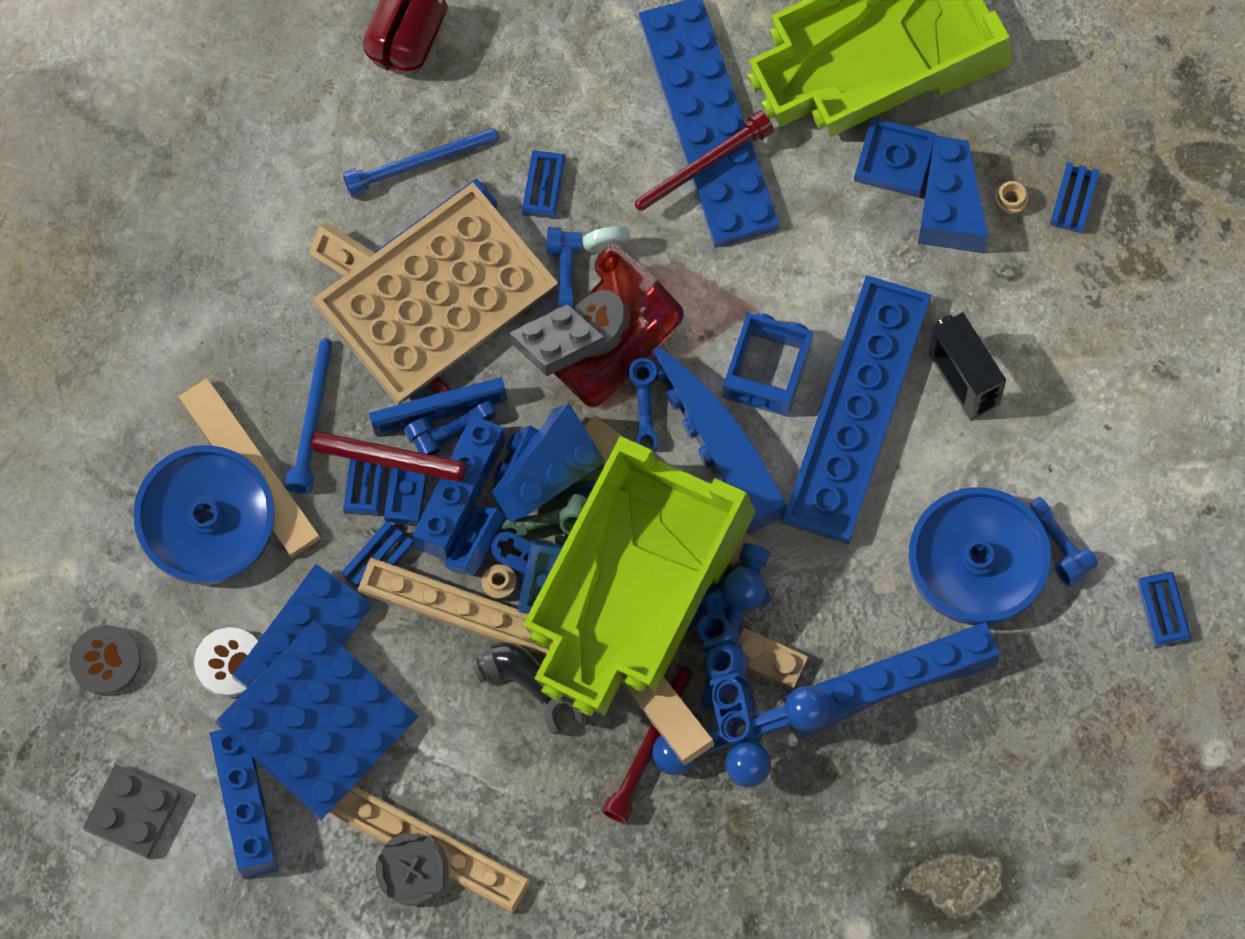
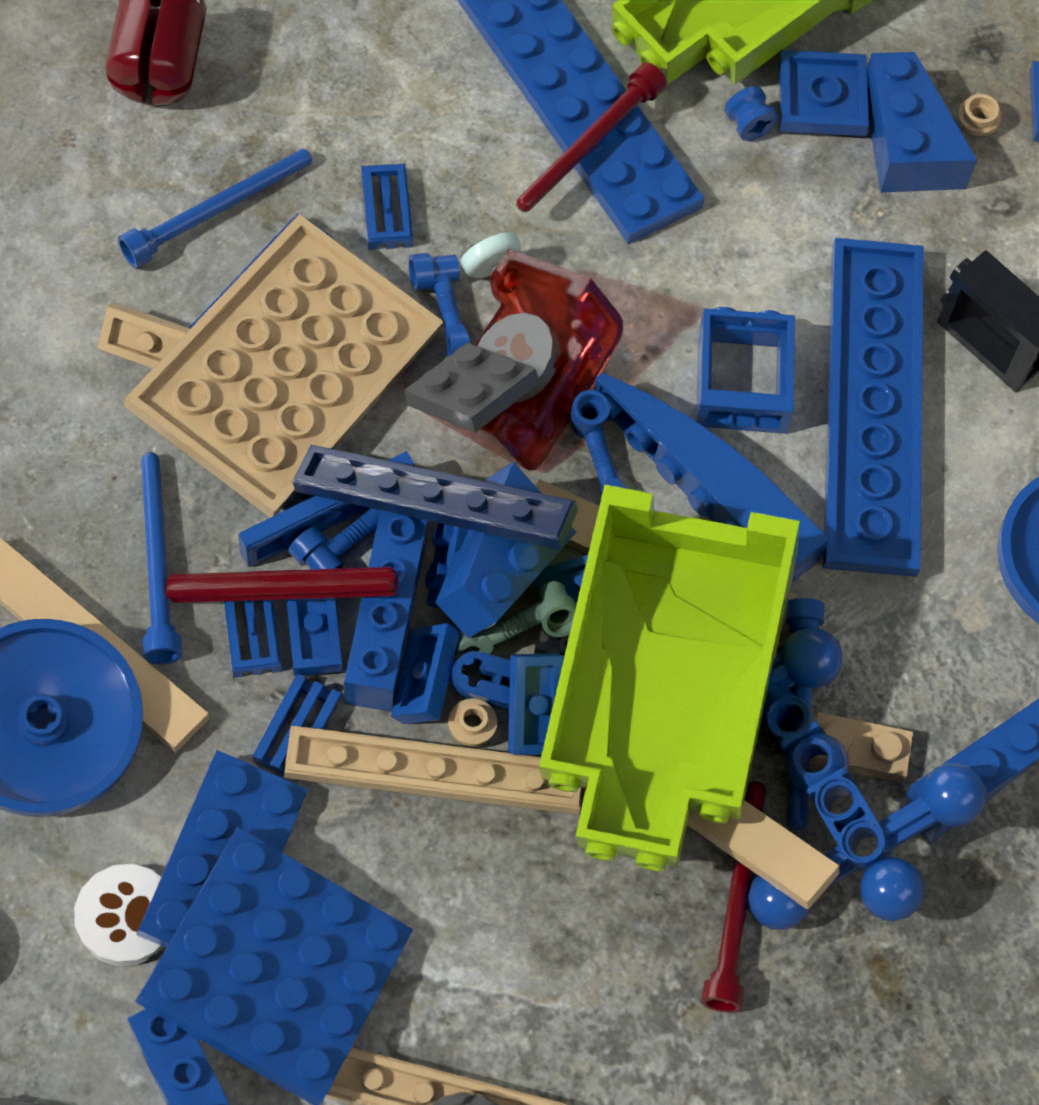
camera: 25 degrees left, 5 degrees down
(507, 416) = (436, 496): none -> dark blue tile
(517, 664) = (535, 827): piece -> none
(834, 163) = (751, 113): none -> blue wheel

